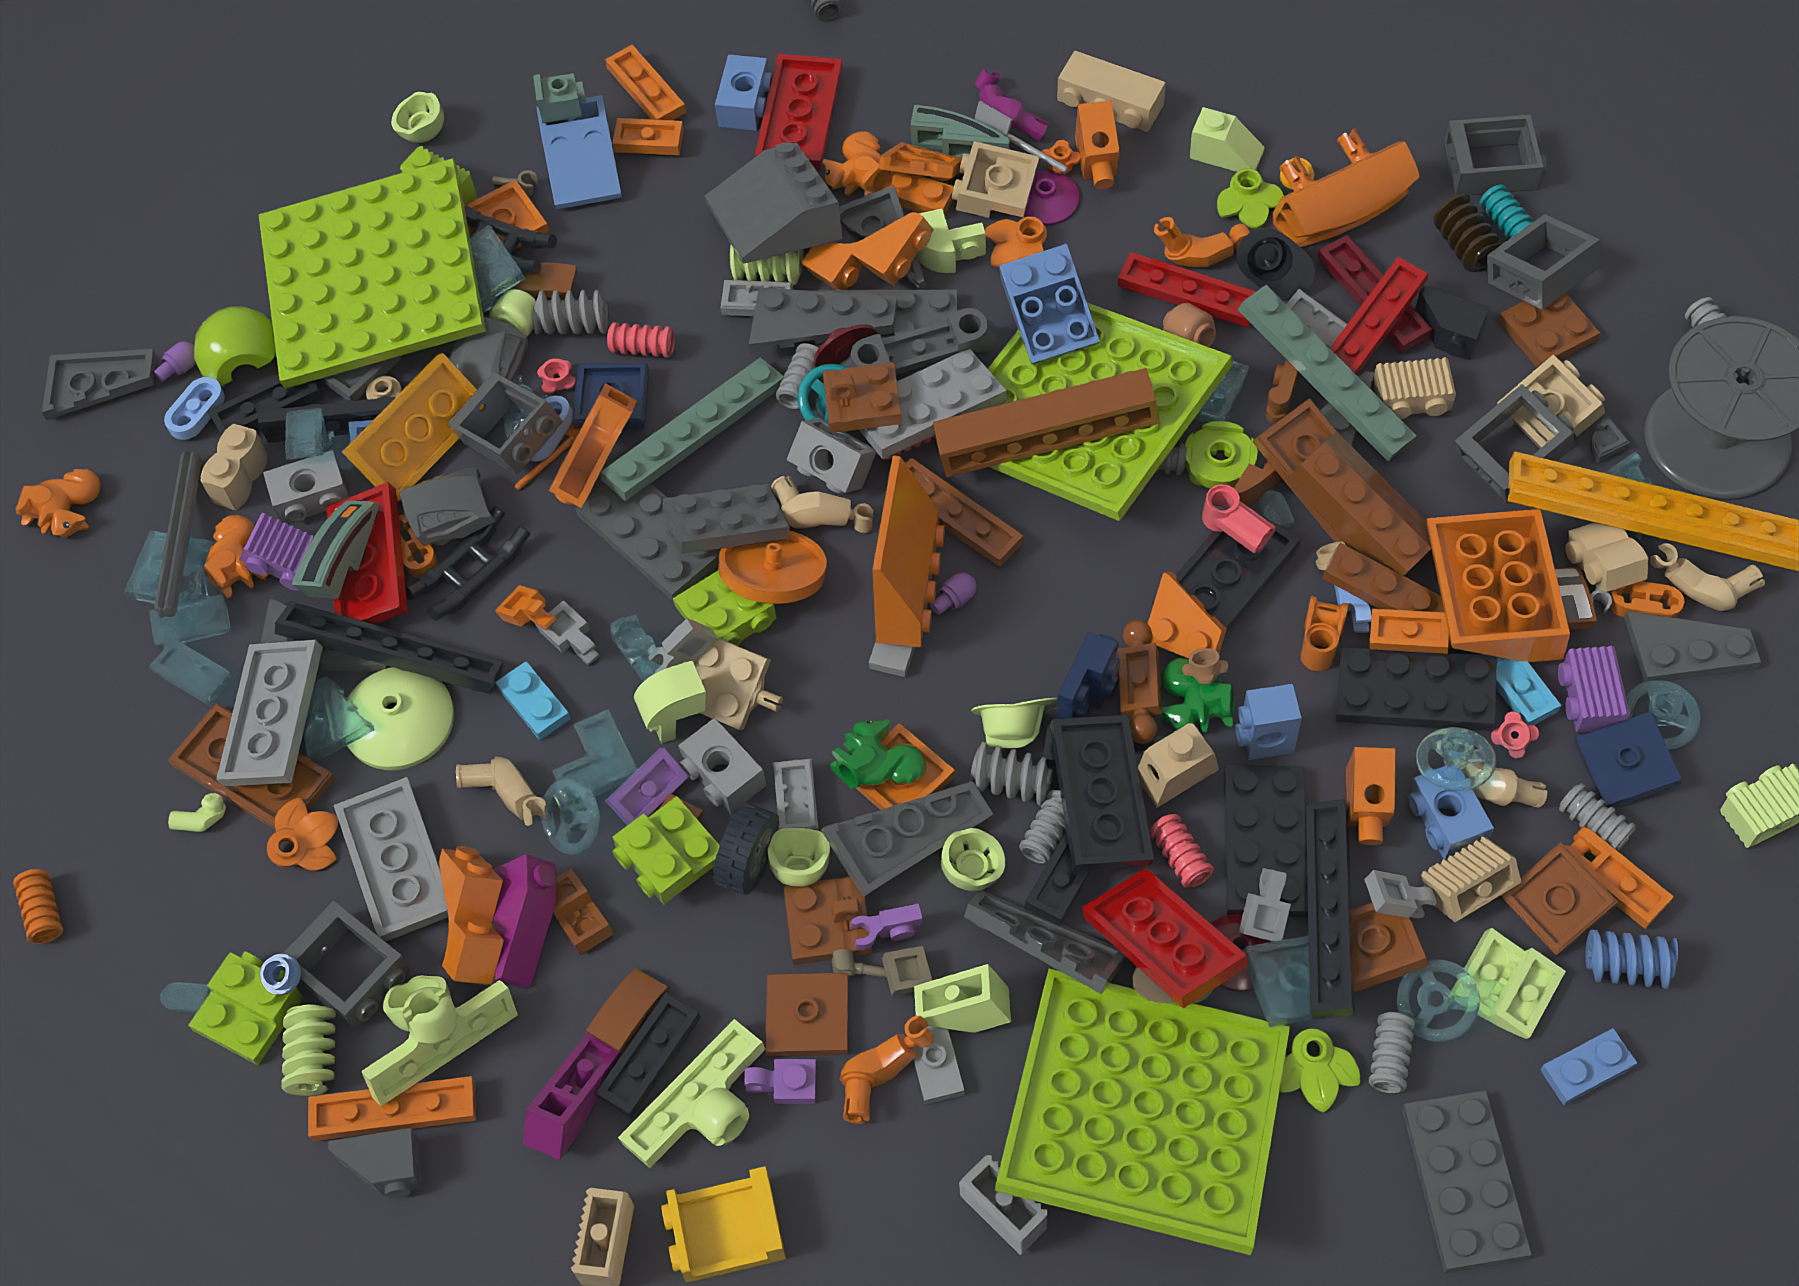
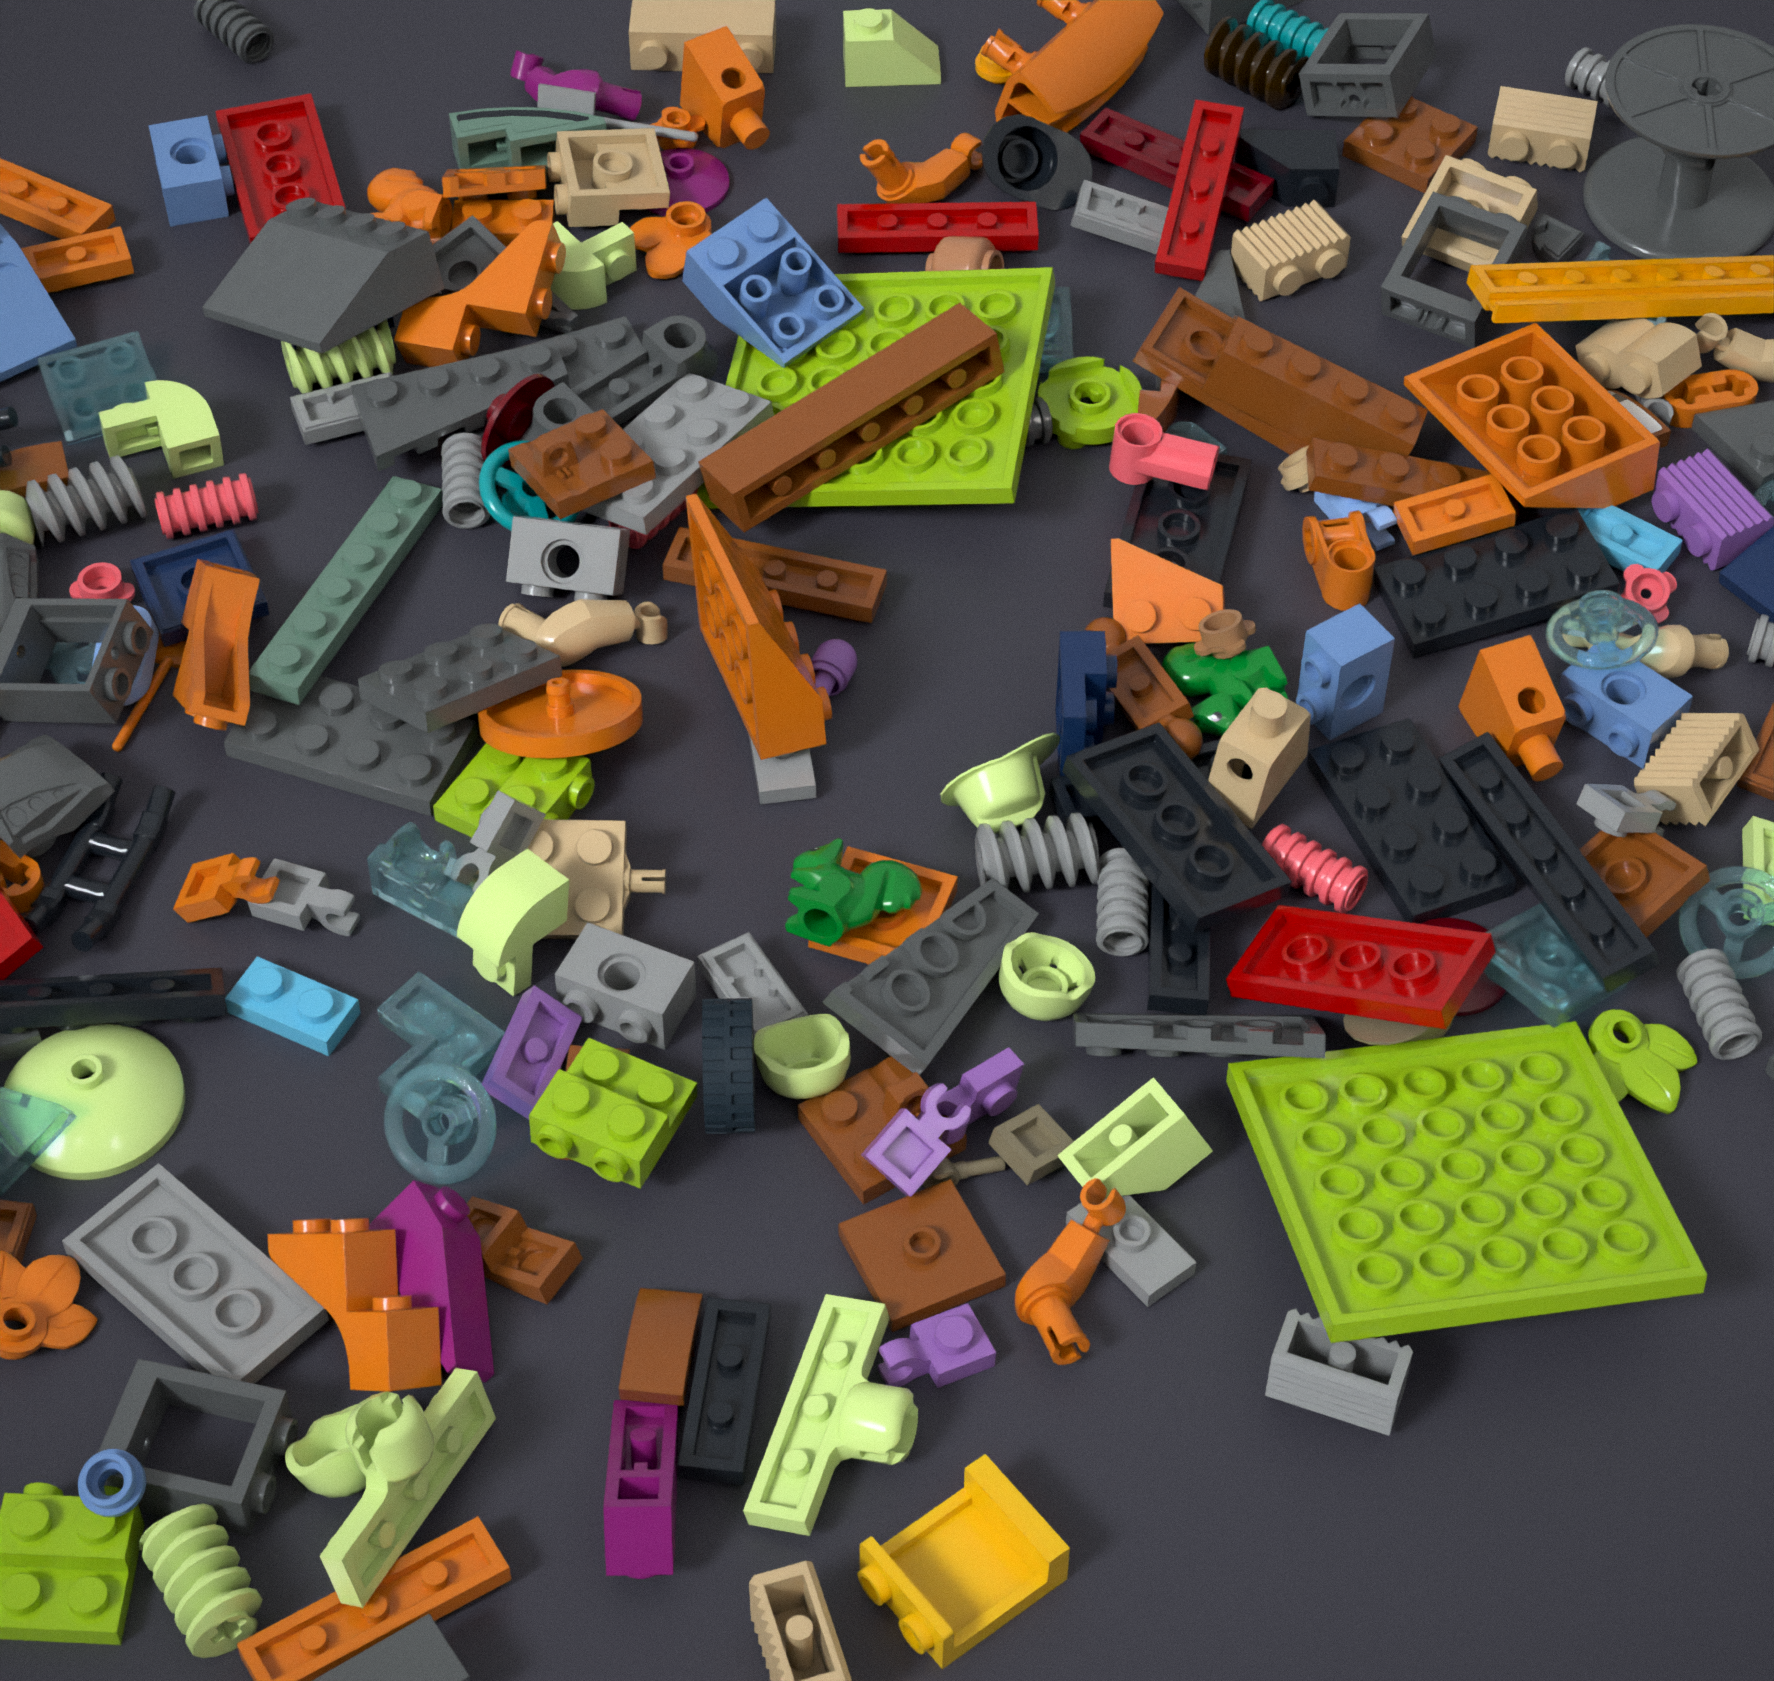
camera: 30 degrees left, 10 degrees down
(508, 784) = (319, 1124): tan arm -> none
(622, 233) = (94, 381): none -> clear light blue slope
(647, 275) = (169, 418): none -> yellowish green brick
(827, 947) = (911, 1146): none -> medium lavender plate
(1248, 198) = (953, 105): lime plate -> none
(1265, 914) = (1465, 893): light grey plate -> none
(1281, 395) = (1122, 282): dark orange plate -> none
(1327, 373) = (1177, 258): sand green plate -> none
(1640, 349) = (1542, 128): none -> tan brick

